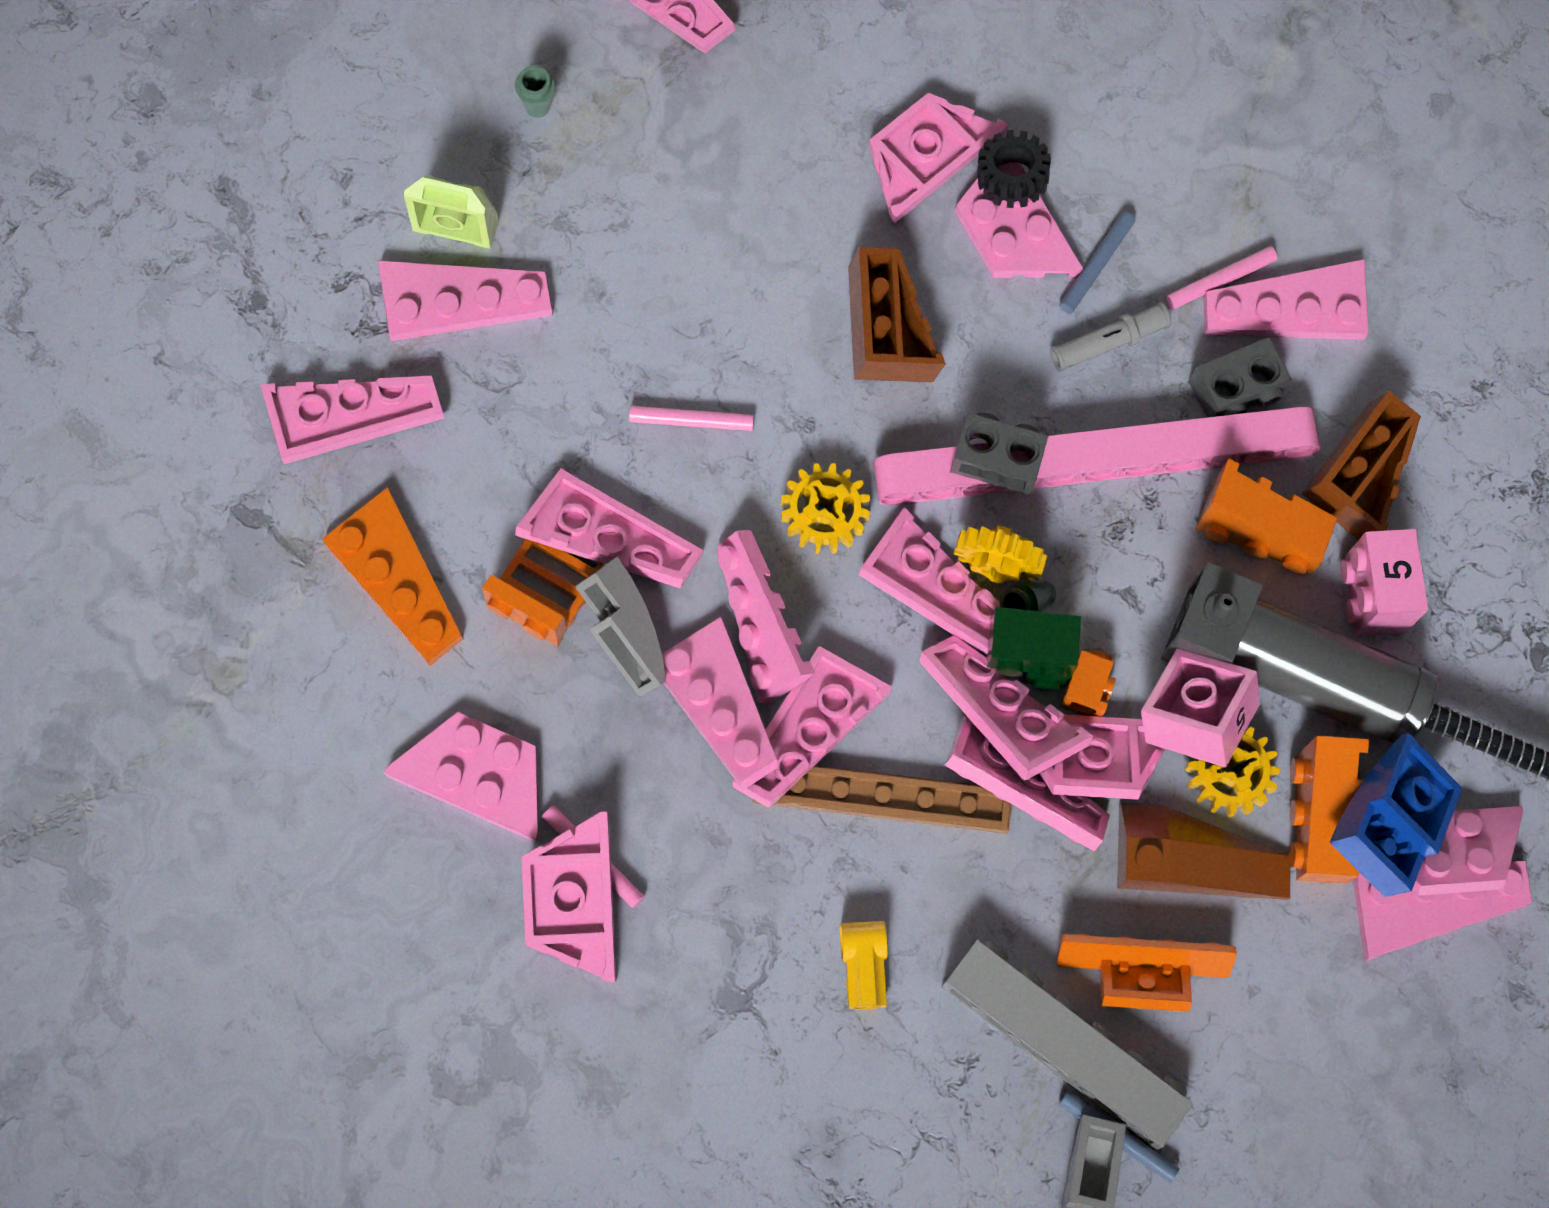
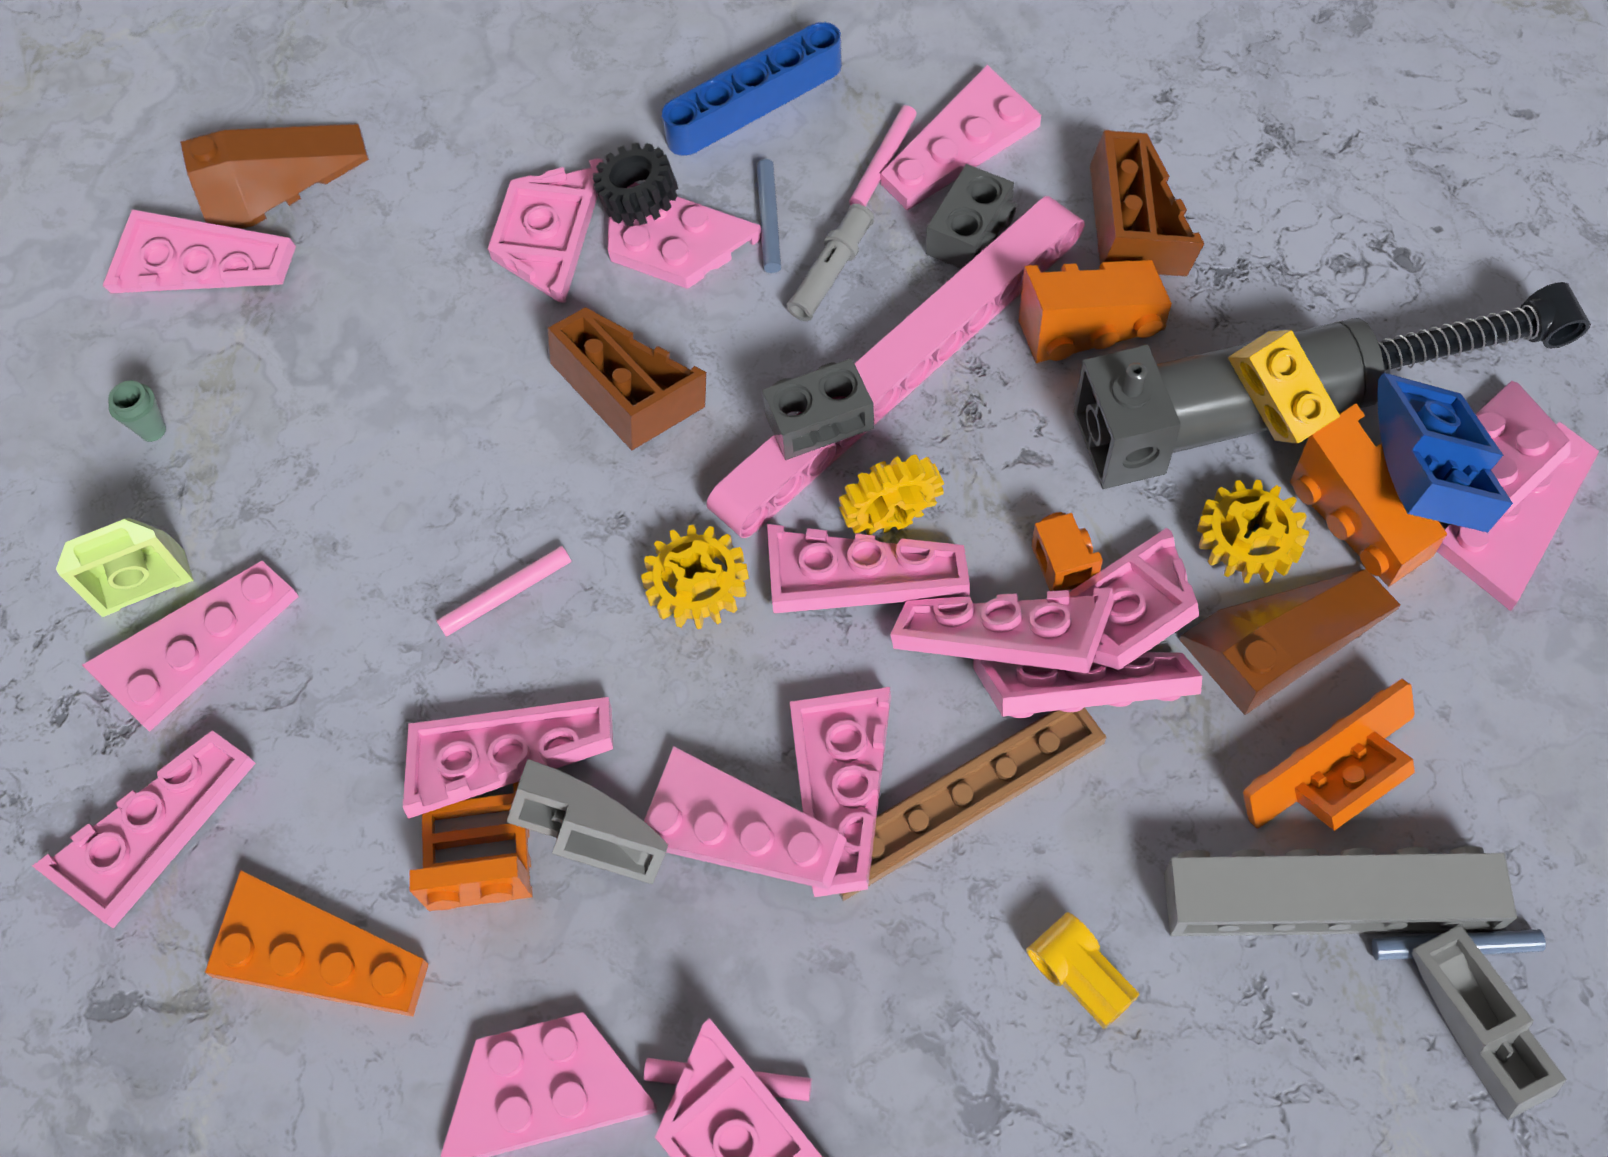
camera: 25 degrees left, 10 degrees down
(763, 633) = (728, 727): bright pink wing -> none
(1028, 595) = (946, 520): dark green cone -> none
(1034, 643) = (992, 547): dark green brick -> none
(1184, 137) = (752, 88): none -> blue beam
(1201, 707) = (1185, 490): bright pink brick -> none
(1325, 689) = (1284, 386): none -> yellow brick
(1384, 583) = (1239, 280): bright pink brick -> none

